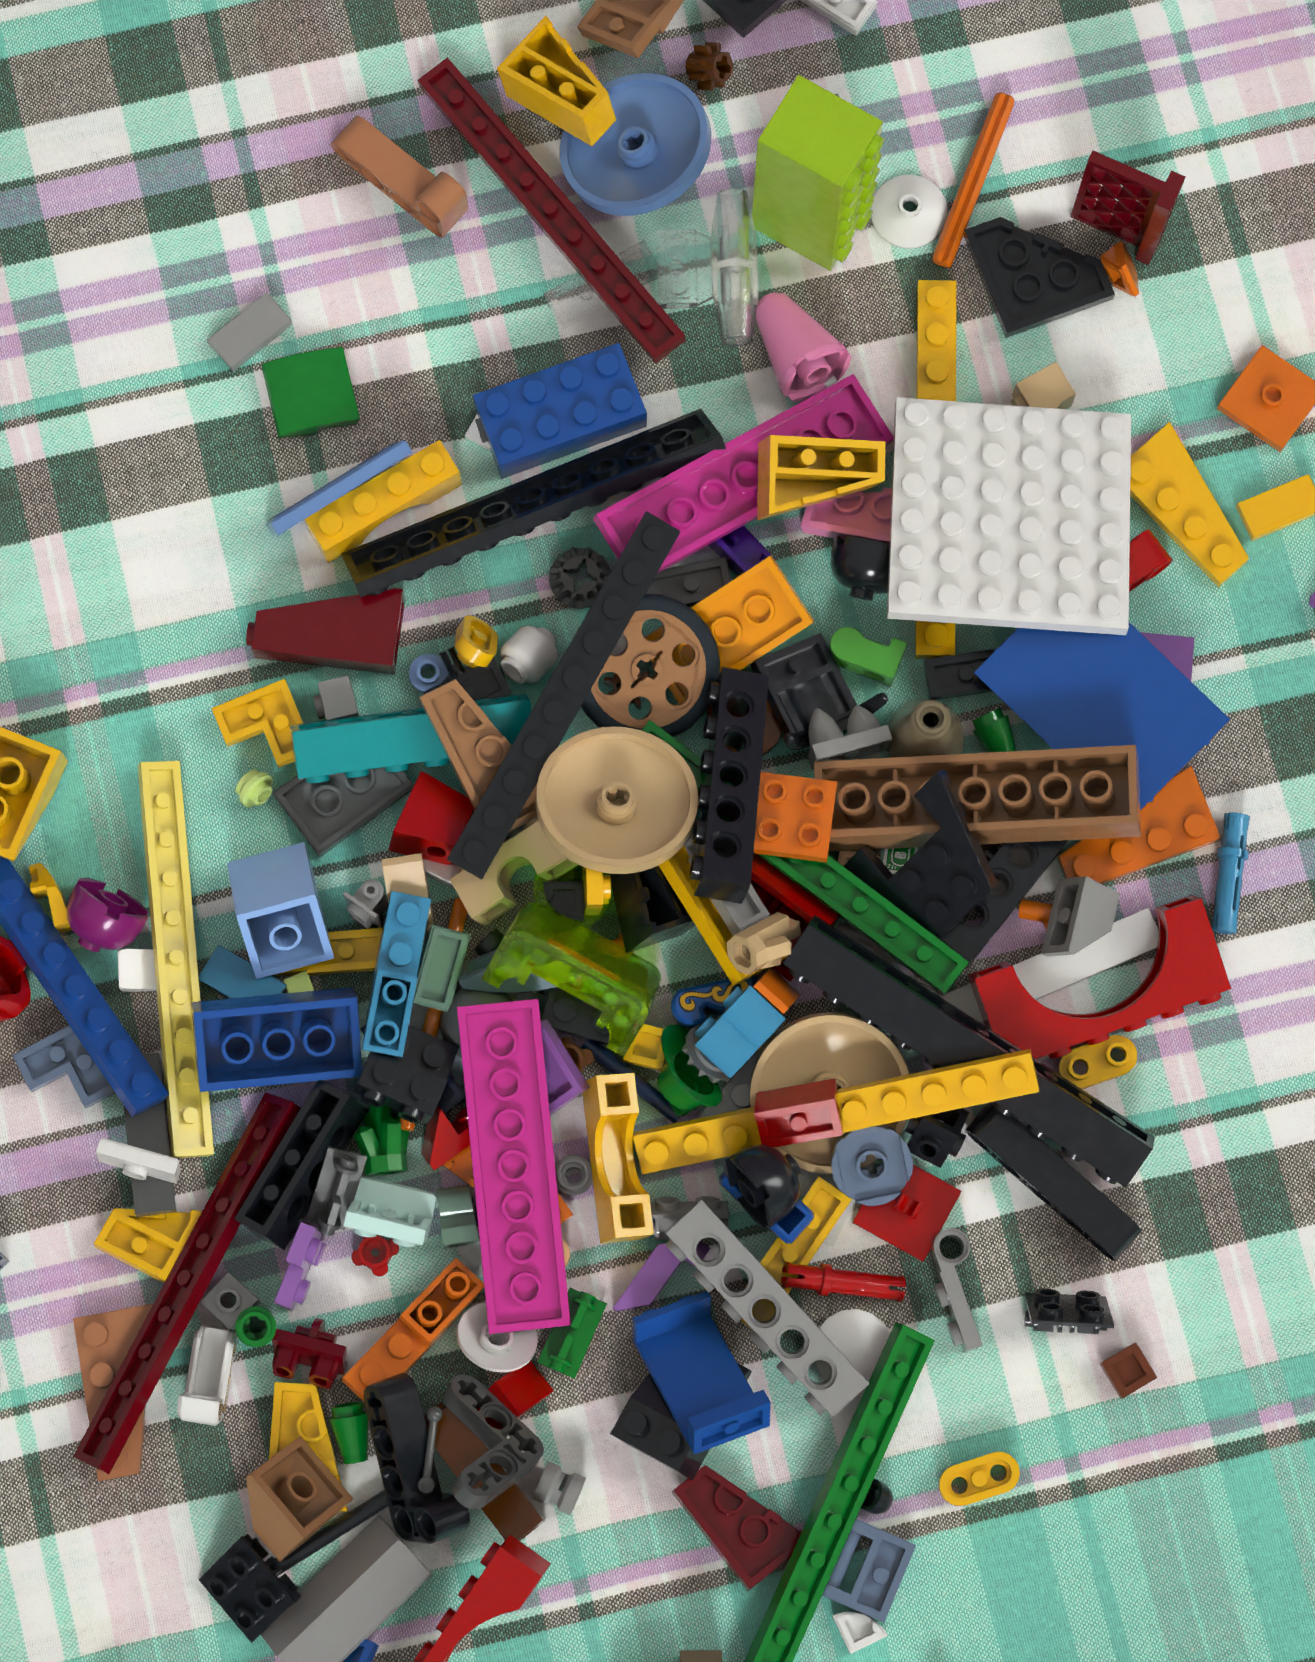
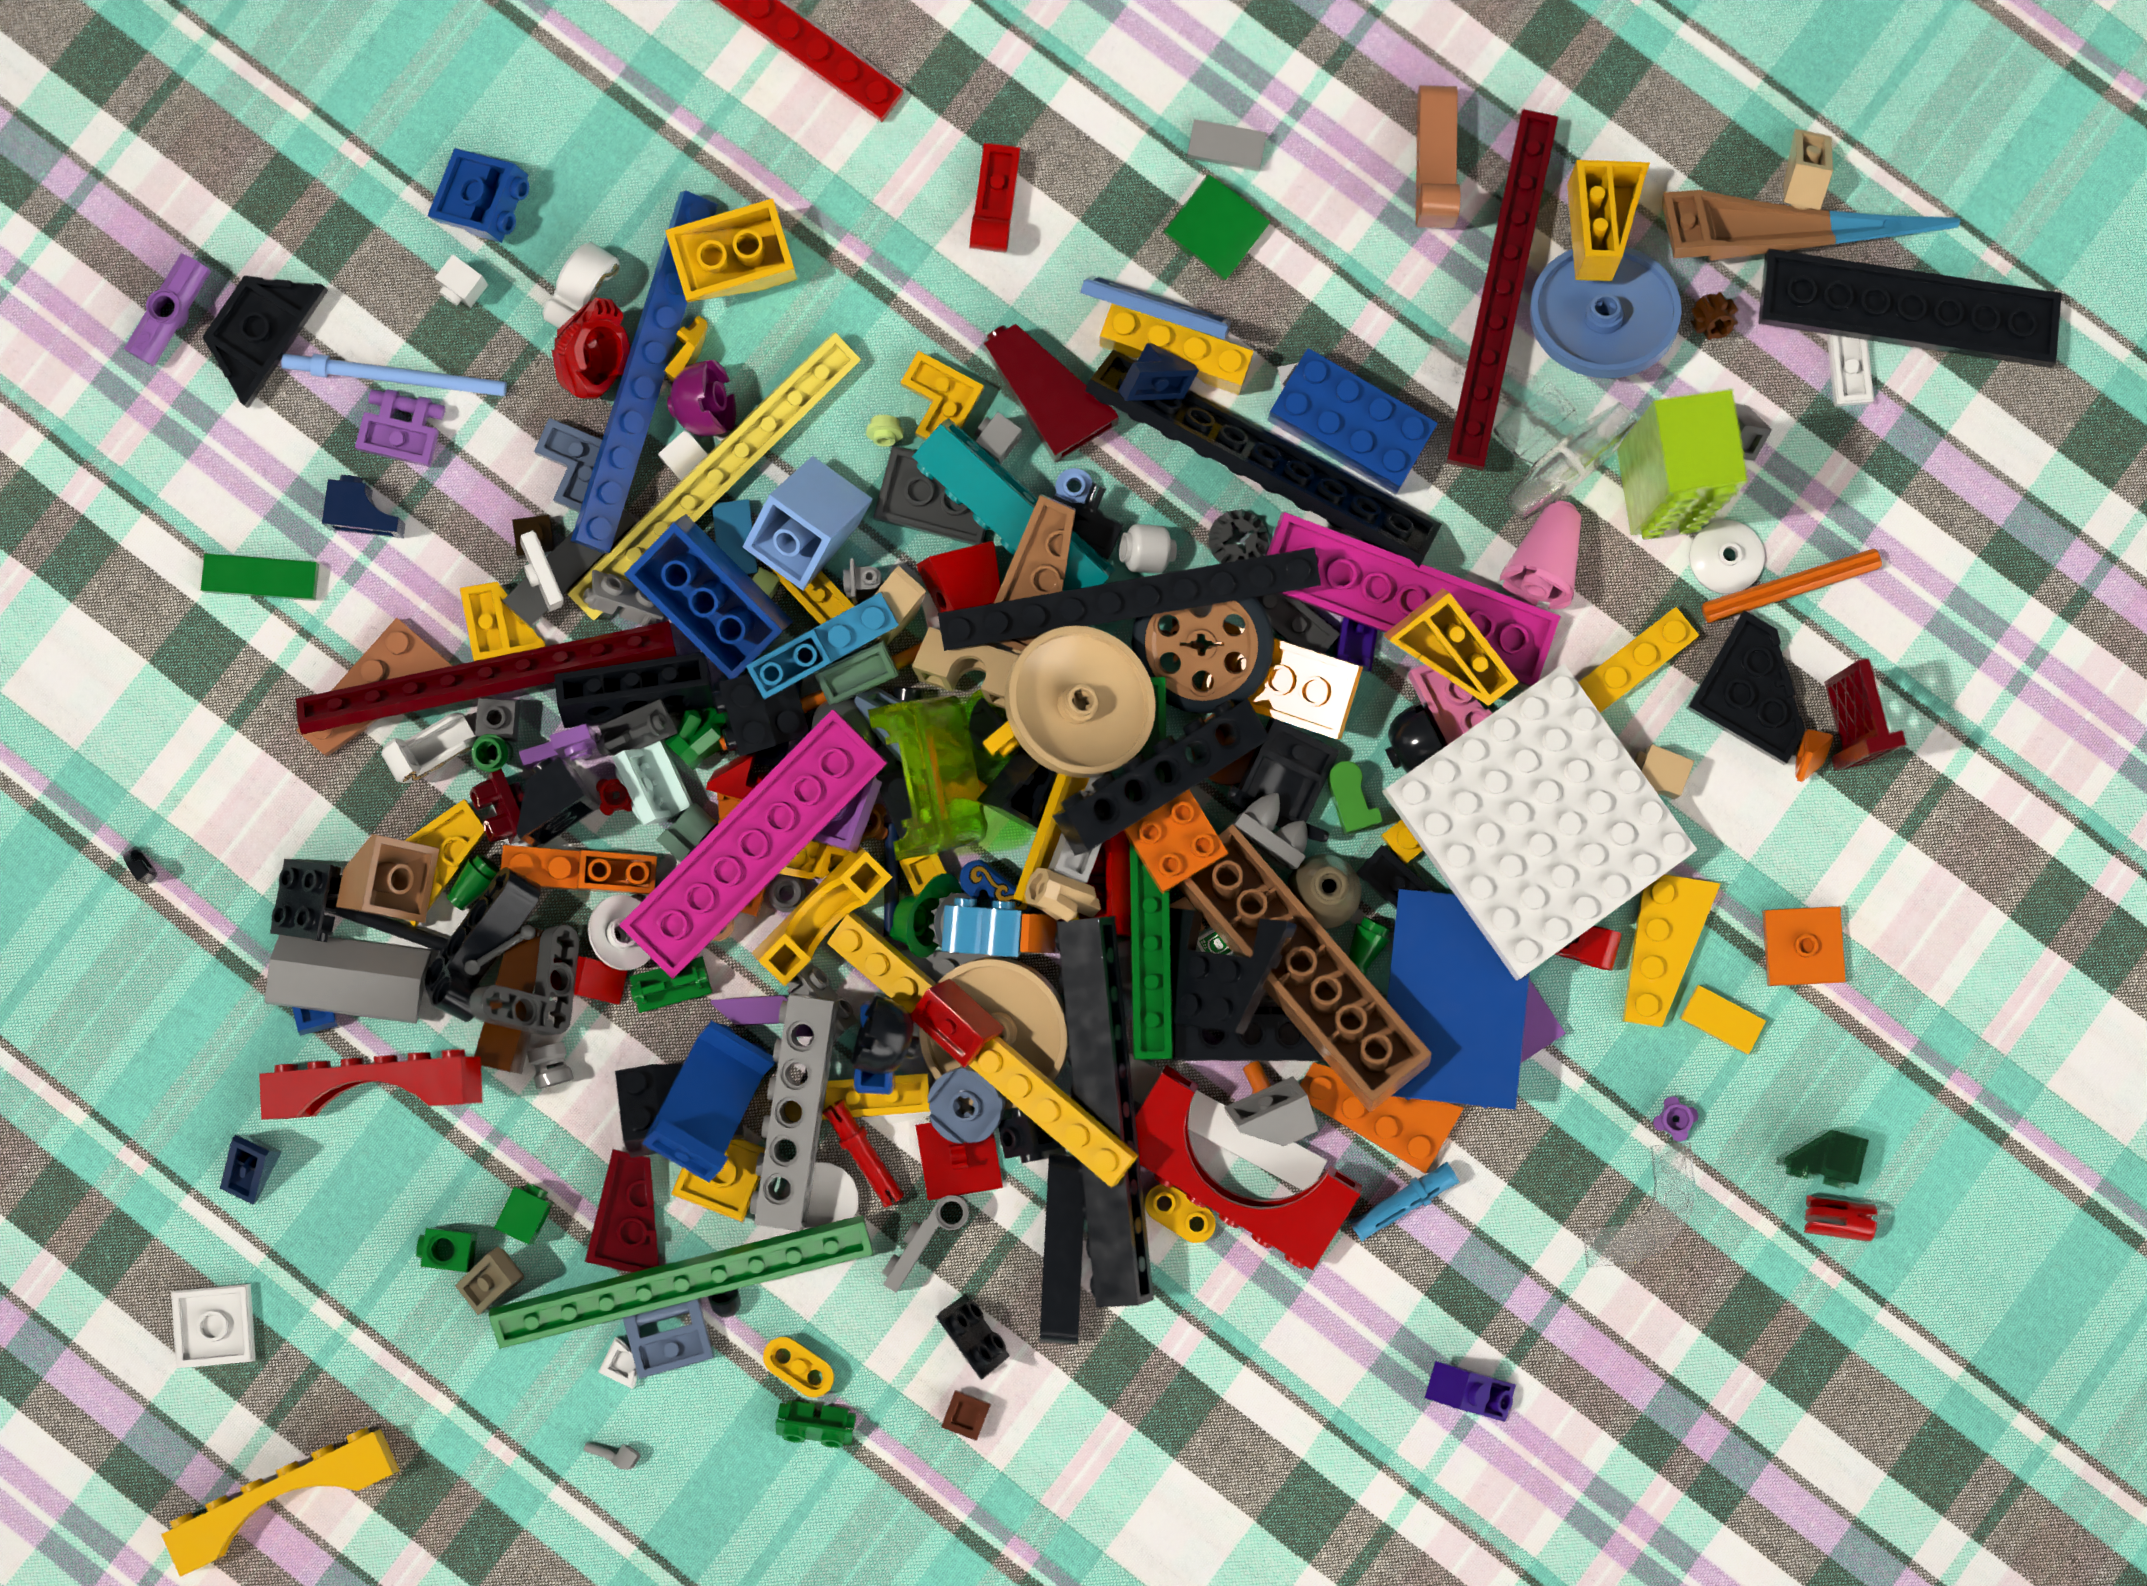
camera: 50 degrees right, 5 degrees up
(88, 1145) = (541, 525): none -> dark brown plate
(137, 547) = (995, 198): none -> red plate
(203, 1116) = (610, 591): none -> light grey hinge
(343, 1300) = (553, 802): none -> black slope
(397, 529) = (1158, 376): none -> dark blue slope
(475, 642) = (1123, 502): yellow plate -> none
(567, 1128) = (814, 861): none -> yellow slope
(667, 1609) = (524, 1213): none -> green brick
(789, 1419) = (731, 1188): none -> yellow plate
(1027, 1517) = (829, 1429): none -> green hinge

